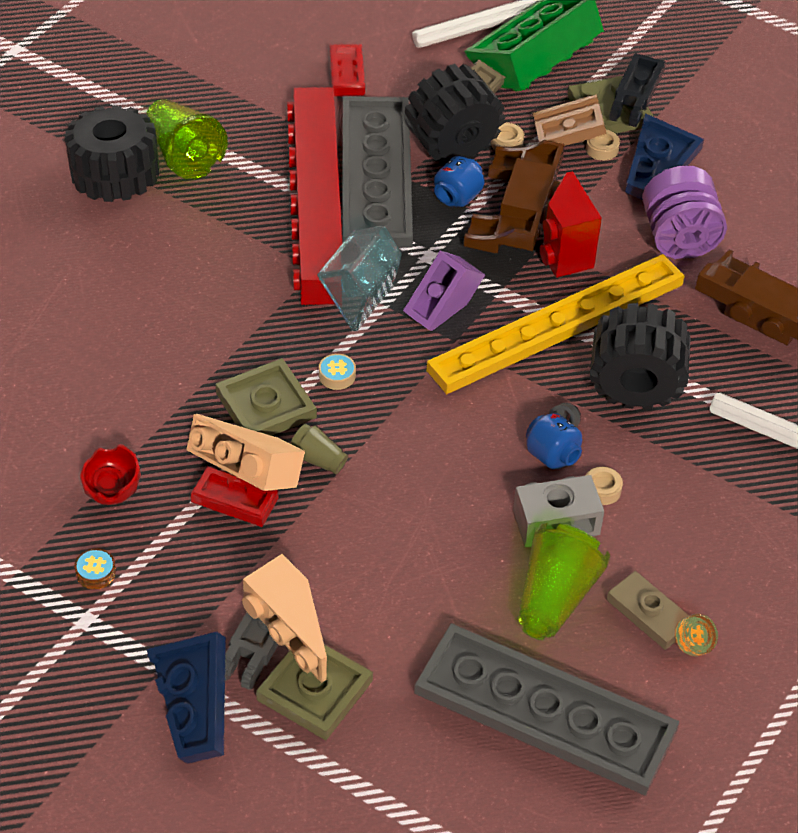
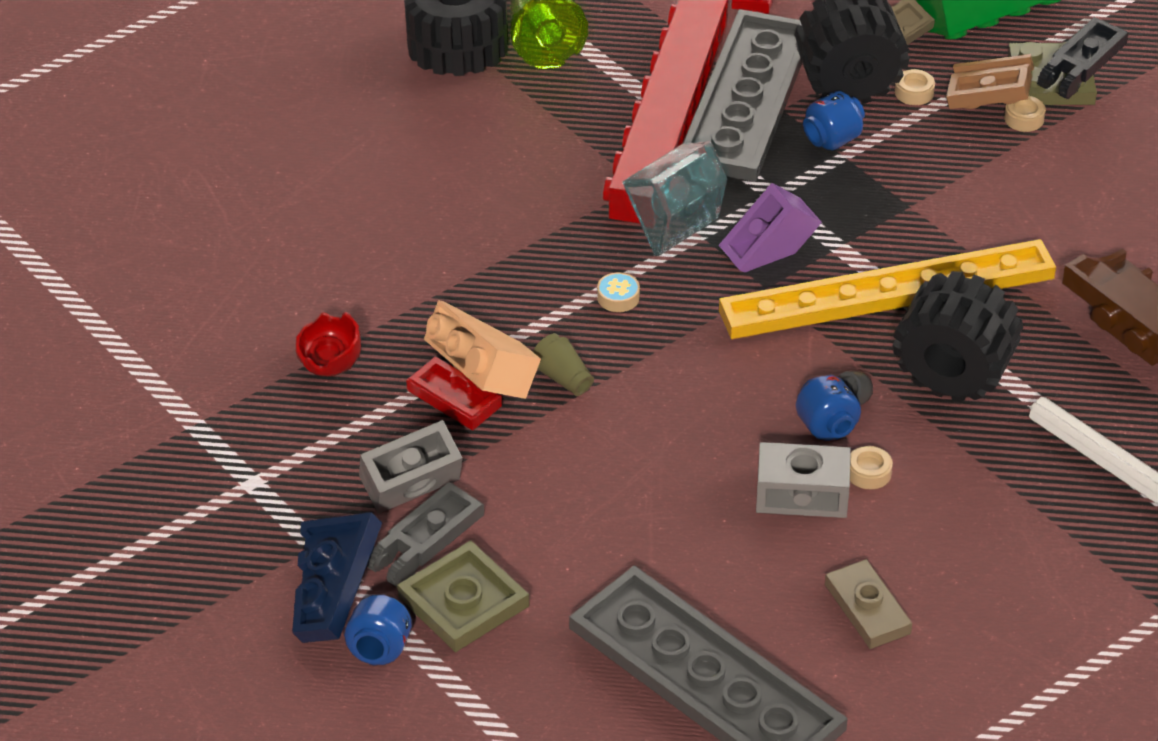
camera: 20 degrees right, 5 degrees down
(95, 568) = (280, 434): tile -> none
(221, 579) = (410, 466): none -> light grey brick
(255, 738) = (378, 630): none -> blue head
(266, 399) = (527, 303): olive plate -> none
(285, 604) = (455, 500): light nougat slope -> none
(525, 203) = (902, 153): reddish brown bracket -> none
(558, 577) = (770, 544): clear neon green cone -> none
(570, 229) = (935, 191): red slope -> none
(659, 149) = (1085, 138): dark blue wing -> none
(684, 212) = (1080, 197): medium lavender wheel -> none
(696, 635) = (908, 638): clear orange tile -> none

